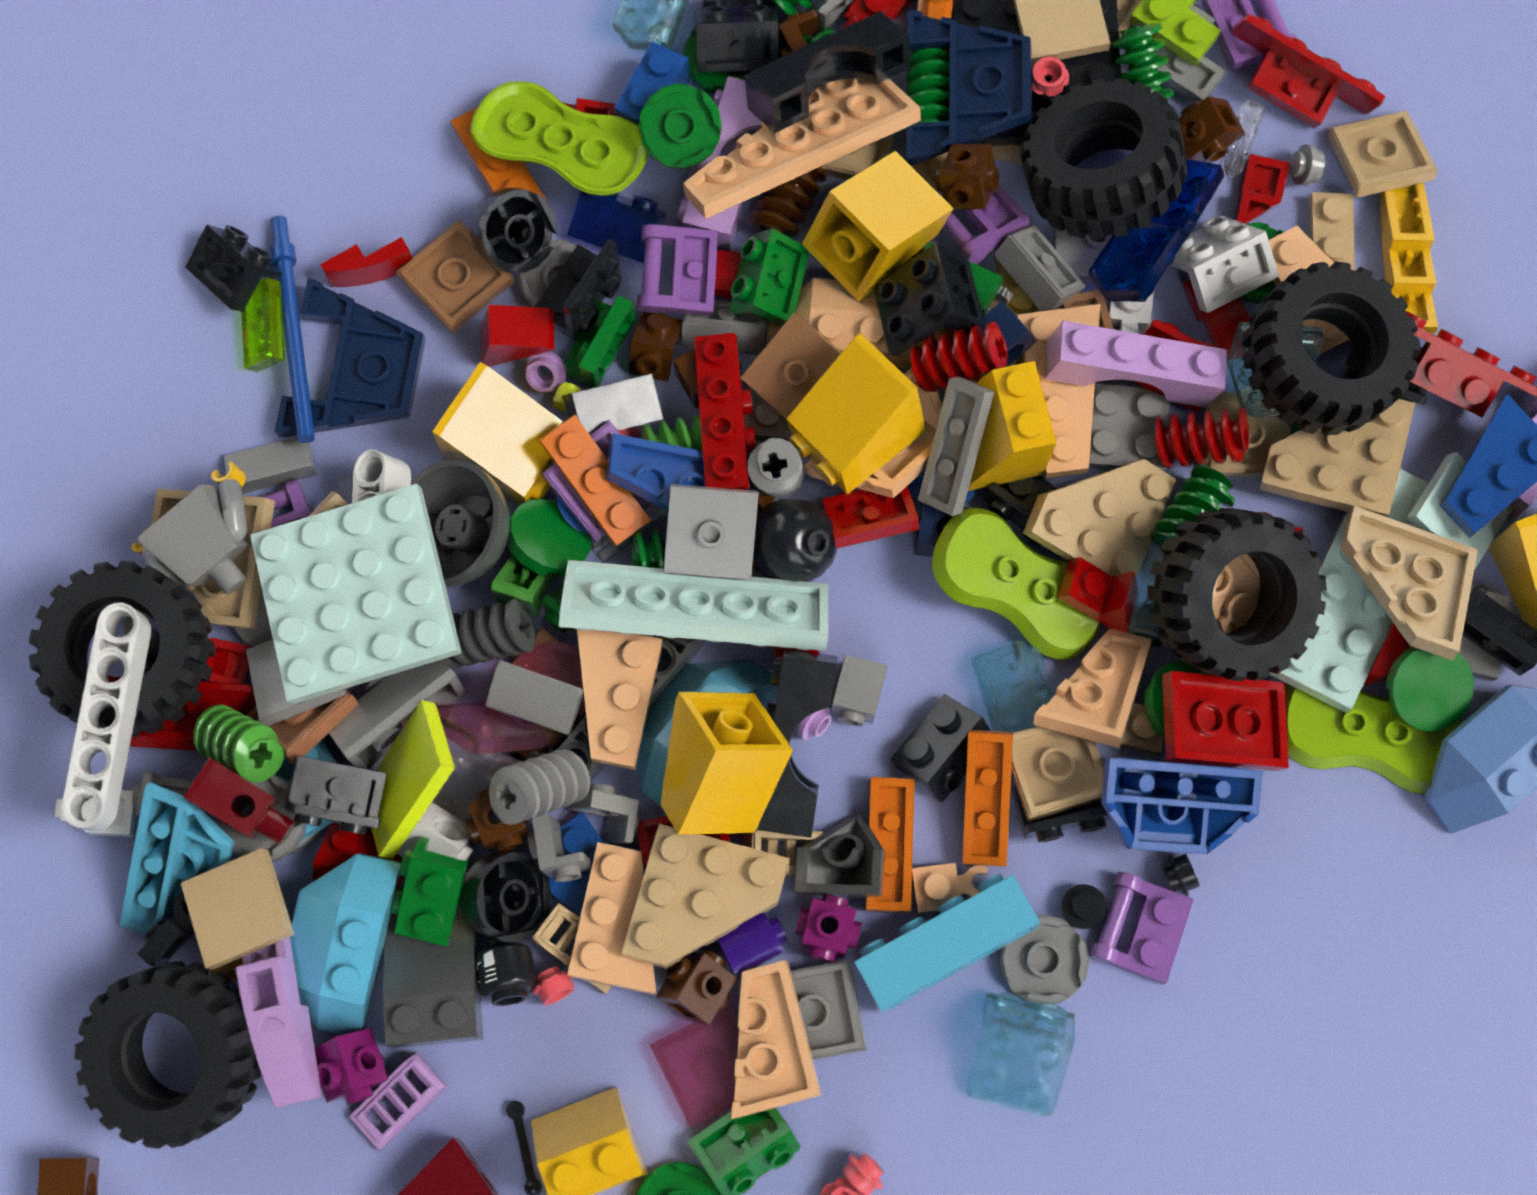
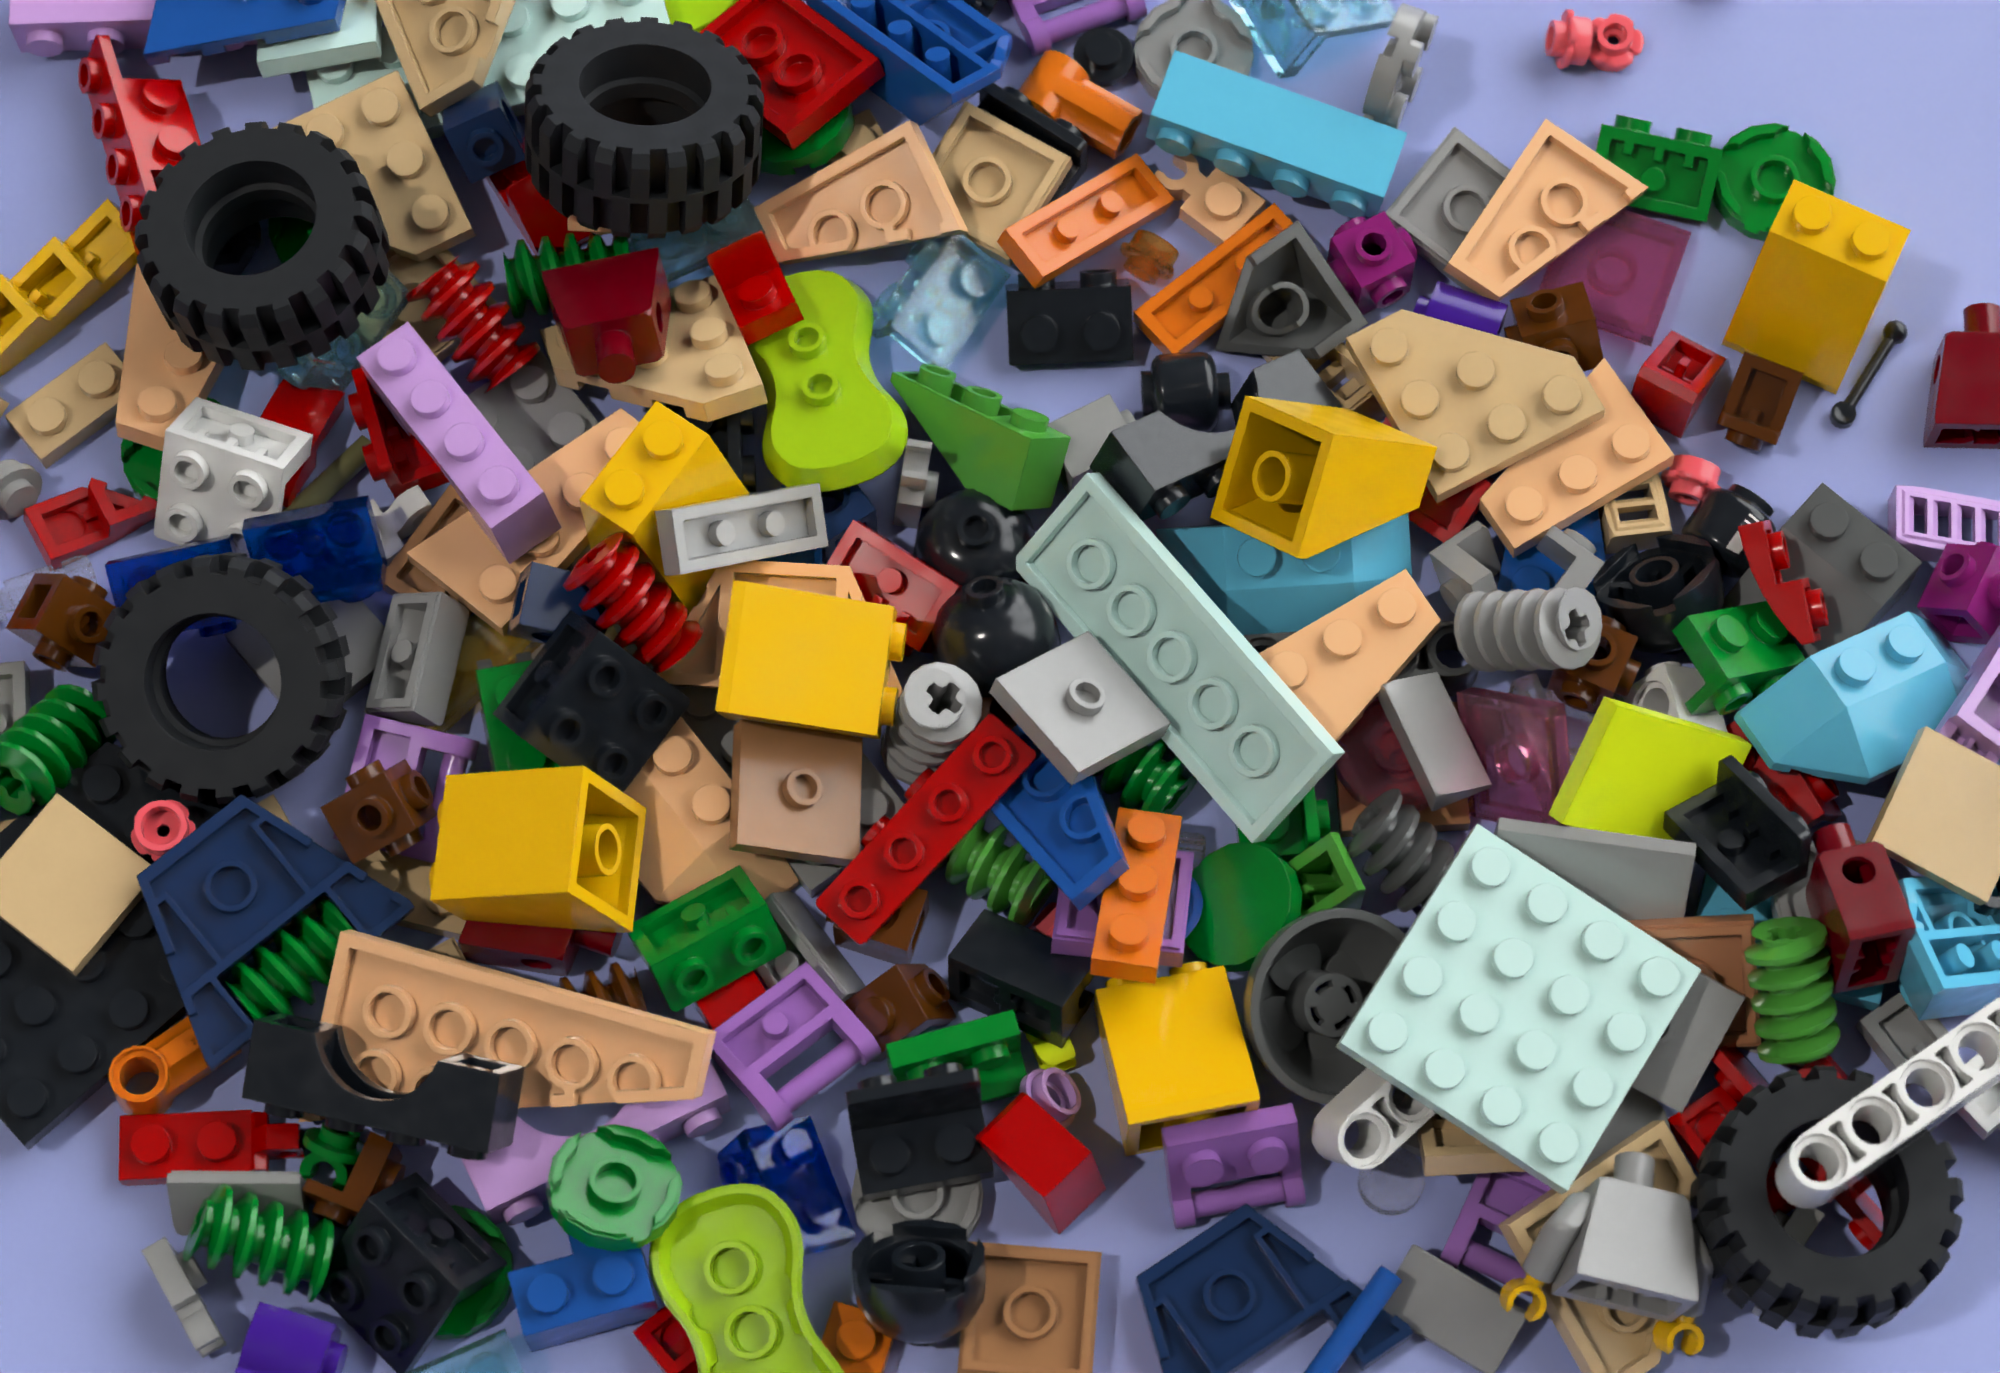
camera: 130 degrees left, 5 degrees down
(416, 433) = (1231, 1150): none -> medium lavender plate
(436, 949) = (1792, 601): none -> red slope
(559, 1061) = (1759, 401): none -> reddish brown bracket
(615, 1035) = (1675, 382): none -> red slope
(846, 765) = (1186, 389): none -> black head
(860, 586) = (972, 537): none -> black cylinder
(911, 633) = (986, 444): none -> bright green slope
(918, 582) = (916, 484): none -> light grey plate
(927, 1051) = (1397, 69): none -> light grey plate
(941, 820) = (1149, 257): none -> clear orange plate
(1074, 859) = (1064, 91): none -> orange piece
(1142, 496) = (611, 312): none -> dark red torso
(1178, 299) = (333, 477): none -> olive piece
(1321, 526) = (484, 132): none -> dark blue brick

